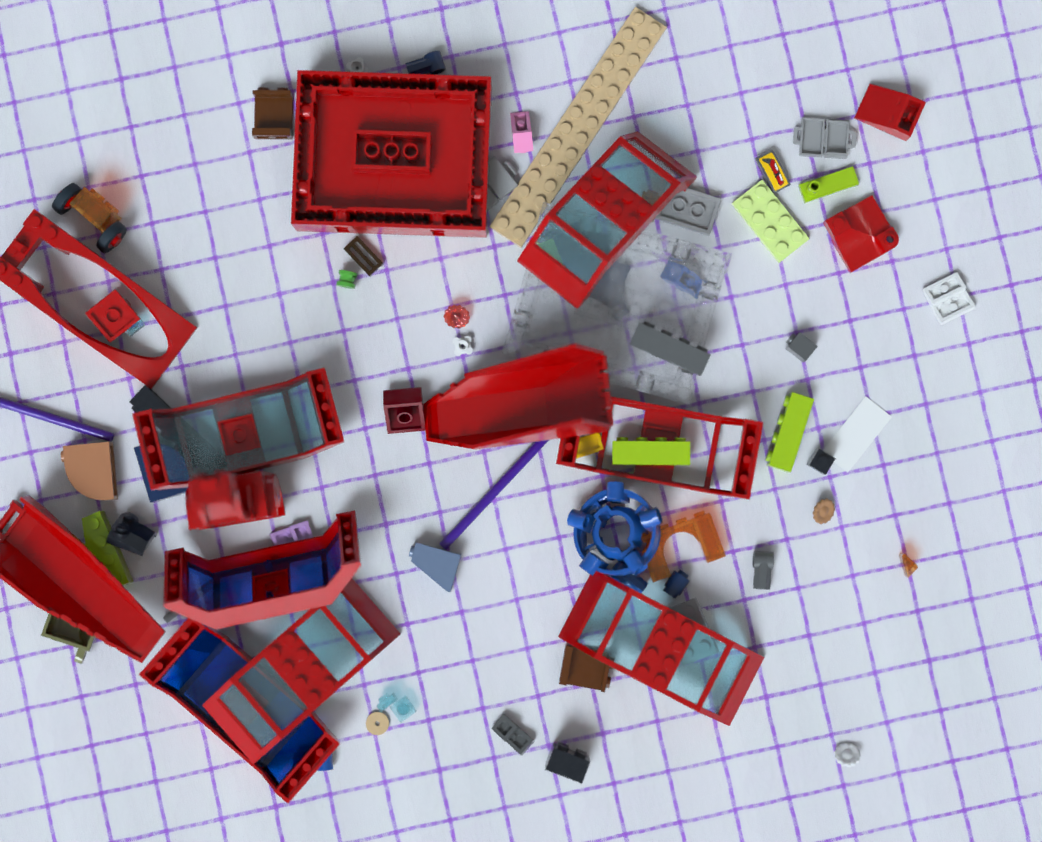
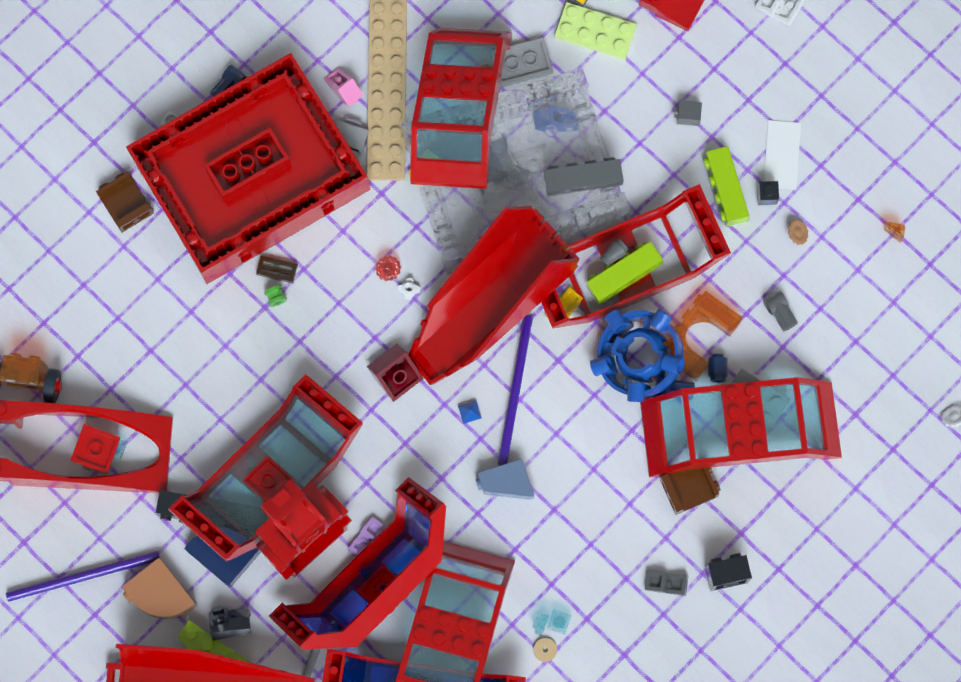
camera: 35 degrees left, 10 degrees down
(445, 484) = (469, 412): none -> blue slope
(654, 430) = (614, 252): none -> dark grey cone

